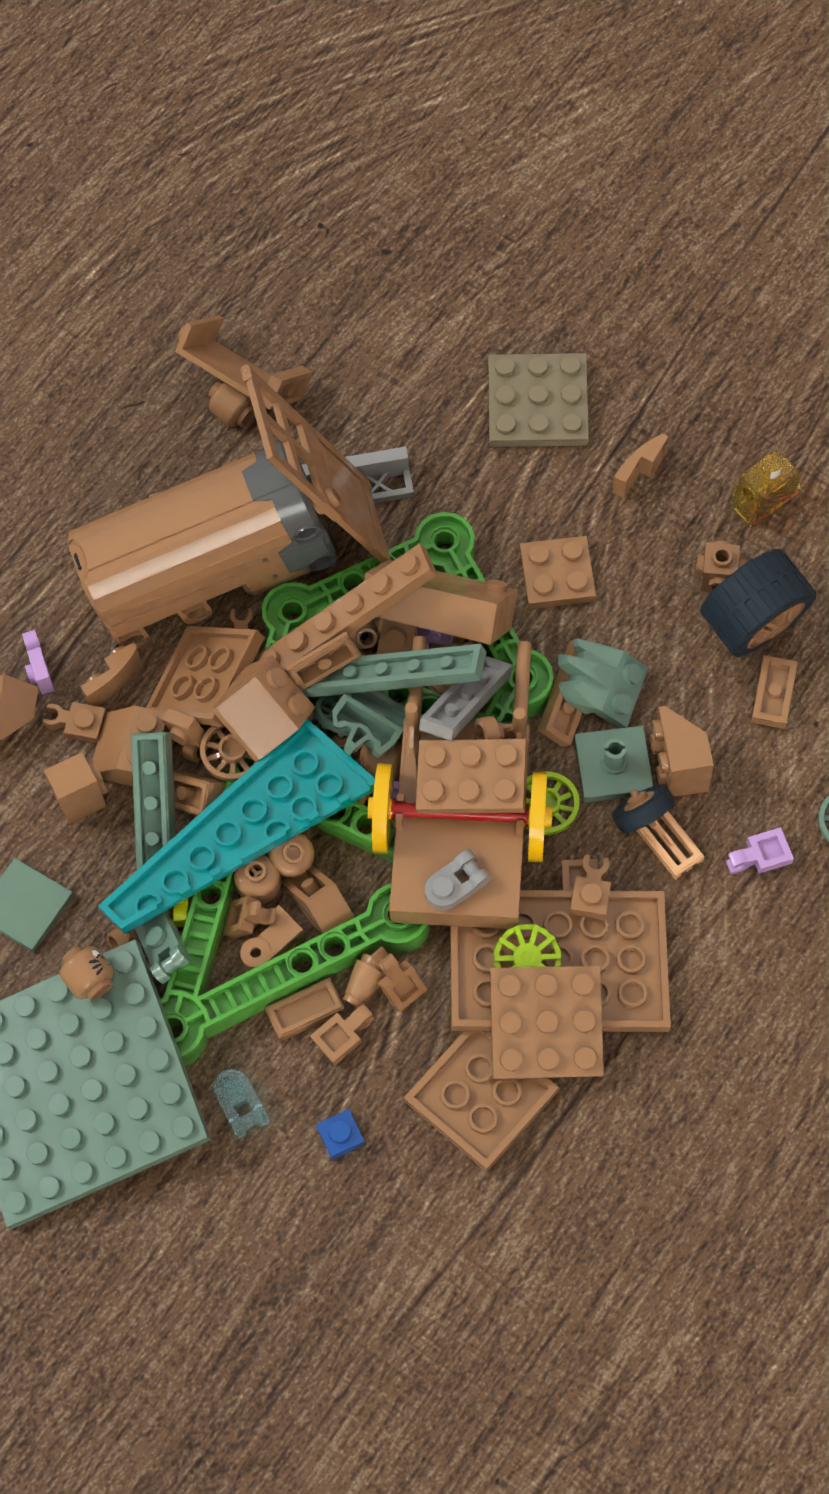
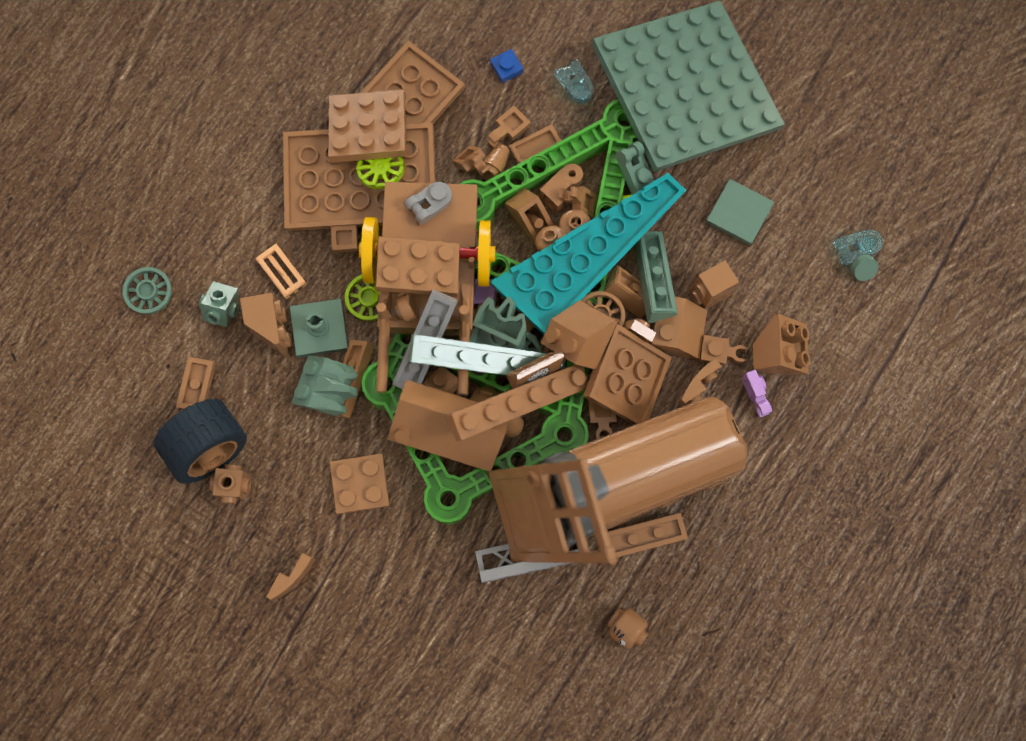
camera: 170 degrees right, 10 degrees up
(86, 973) = (687, 136): medium nougat head -> none
(199, 346) = (626, 656): medium nougat panel -> none
(538, 400) = (375, 642): dark tan plate -> none
(591, 893) = (335, 219): medium nougat plate -> none
(643, 808) = (296, 283): black wheel -> none
(744, 798) = (219, 304): none -> sand green brick
(764, 850) = (211, 261): lavender plate -> none
(770, 483) = (190, 554): clear yellow torso -> none

